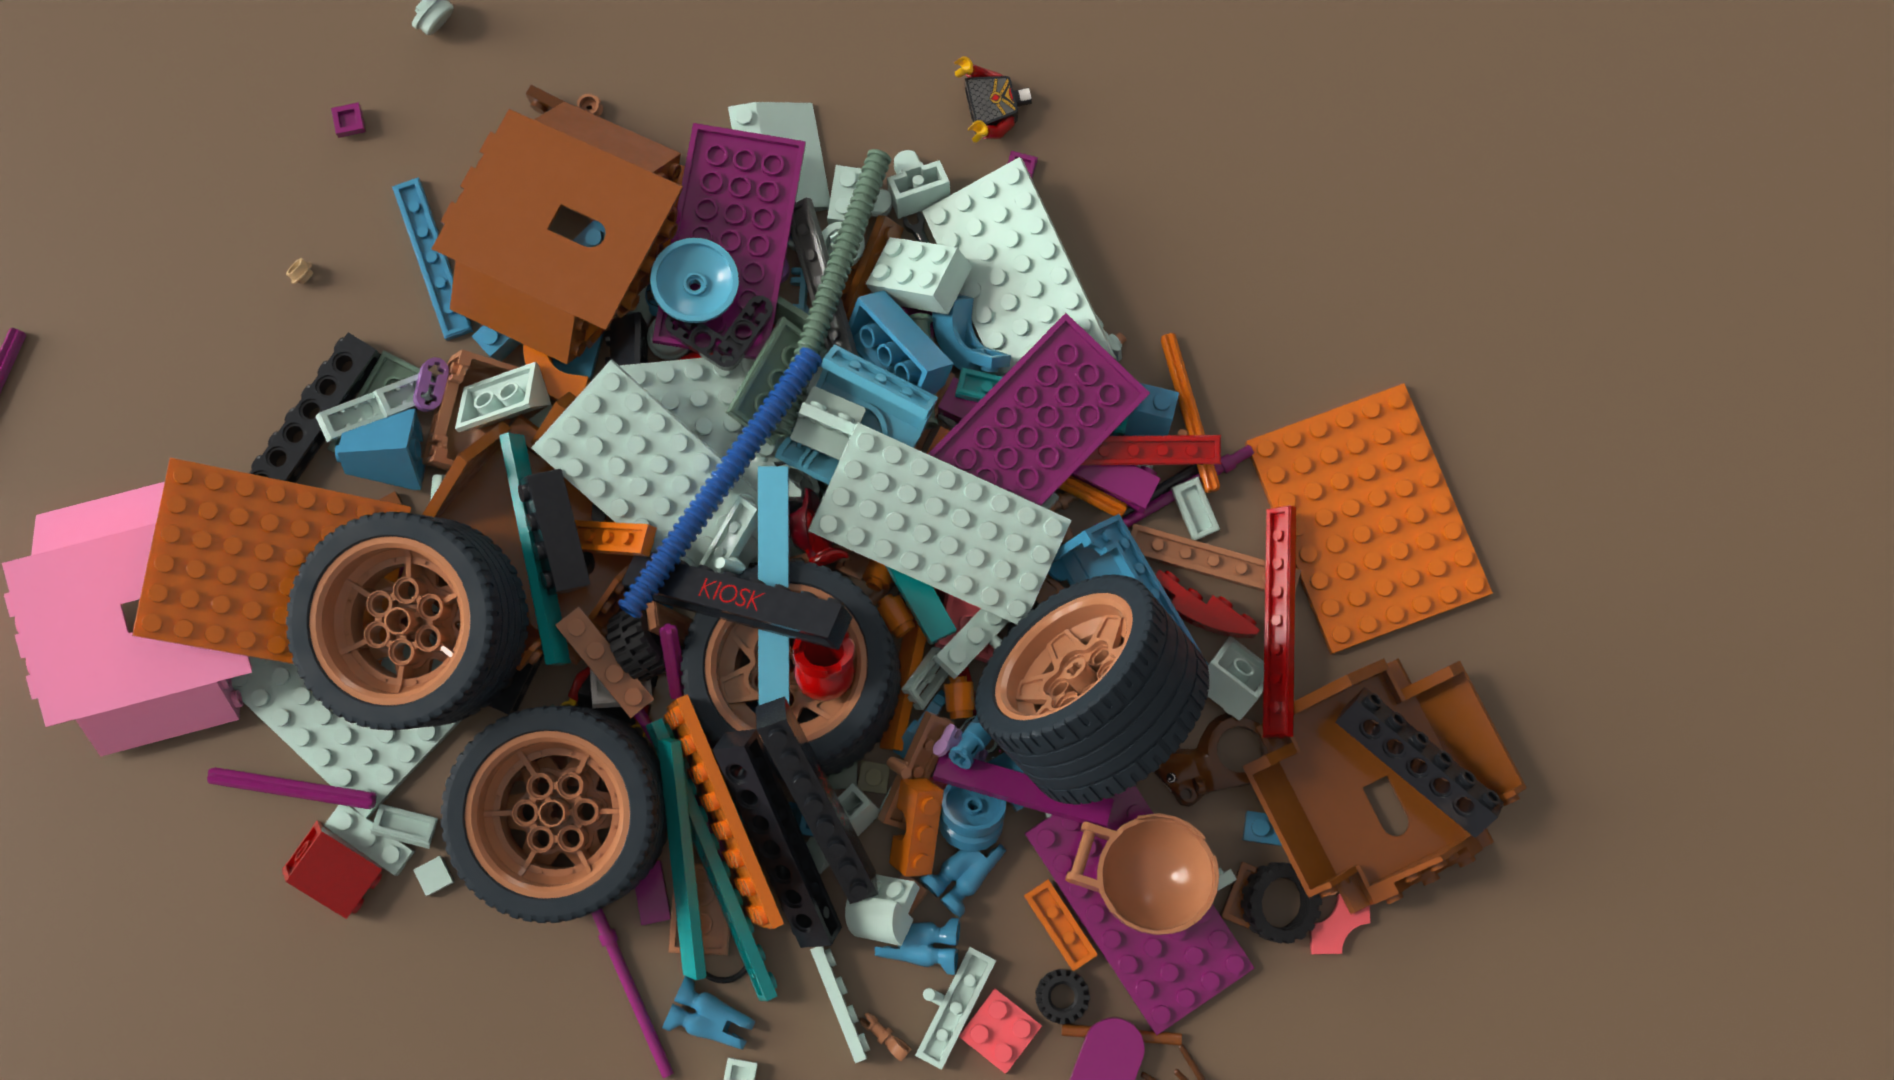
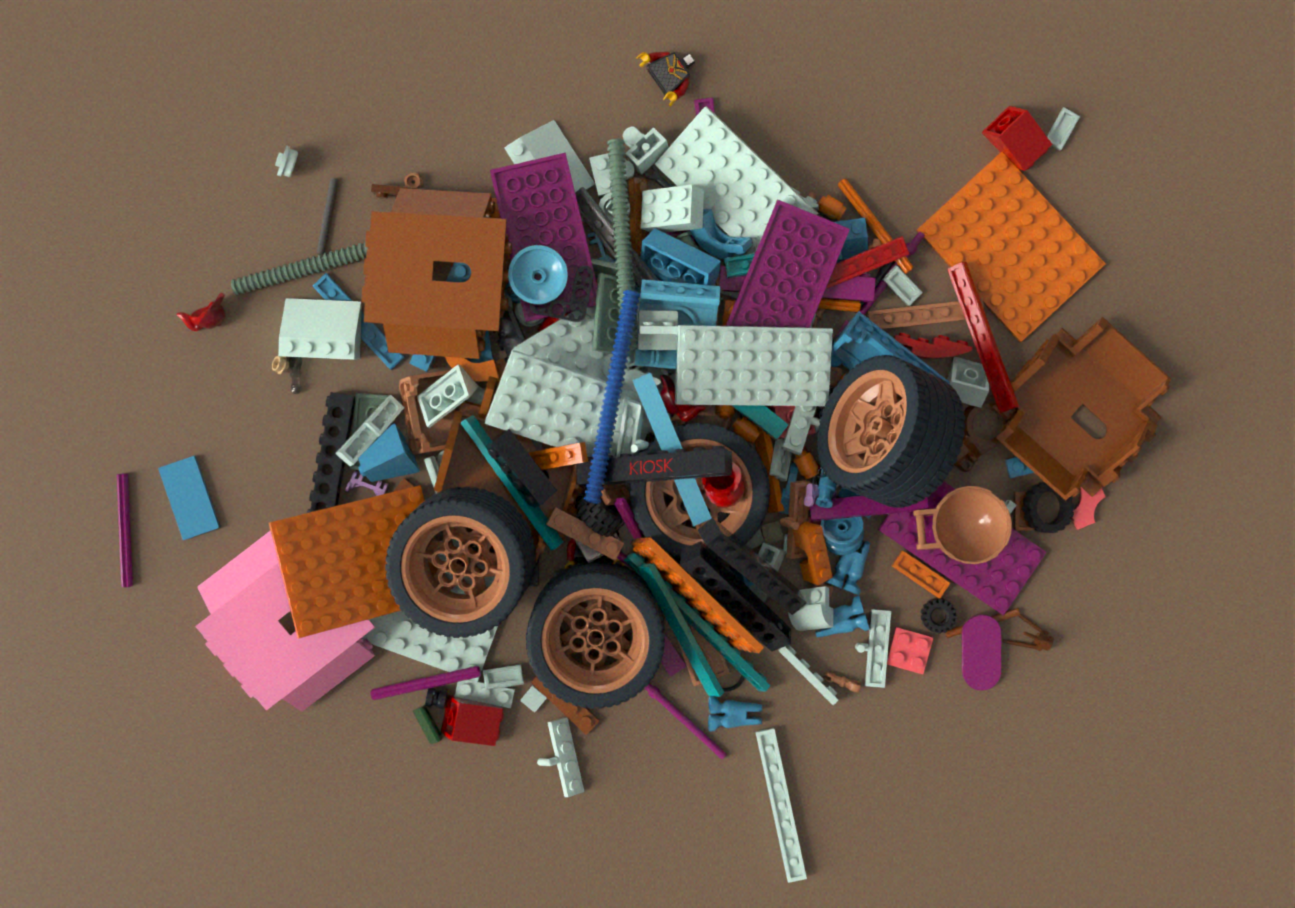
camera: 20 degrees left, 10 degrees up
(92, 399) = (189, 497): none -> dark azure tile
(231, 170) = (206, 317): none -> hair
(269, 850) = (428, 724): none -> dark green slope
(297, 816) = (436, 698): none -> black wheel
(320, 280) = (295, 364): none -> clear smoke piece
(325, 470) = (359, 482): none -> lavender piece
(348, 120) = (264, 253): magenta plate -> none
(374, 247) = (321, 329): none -> light aqua slope
(377, 156) = (299, 269): none -> sand green piece
(437, 385) = (401, 402): medium lavender beam -> none
(439, 979) = (564, 757): none -> light aqua plate
(454, 106) = (327, 216): none -> dark grey bar
(485, 921) = (581, 717): none -> dark orange plate
(1139, 363) = (831, 207): none -> orange brick
(1423, 776) = (1101, 390): black brick -> none
(1434, 373) = (1018, 137): none -> red slope
(1499, 387) = (1062, 128): none -> light aqua tile

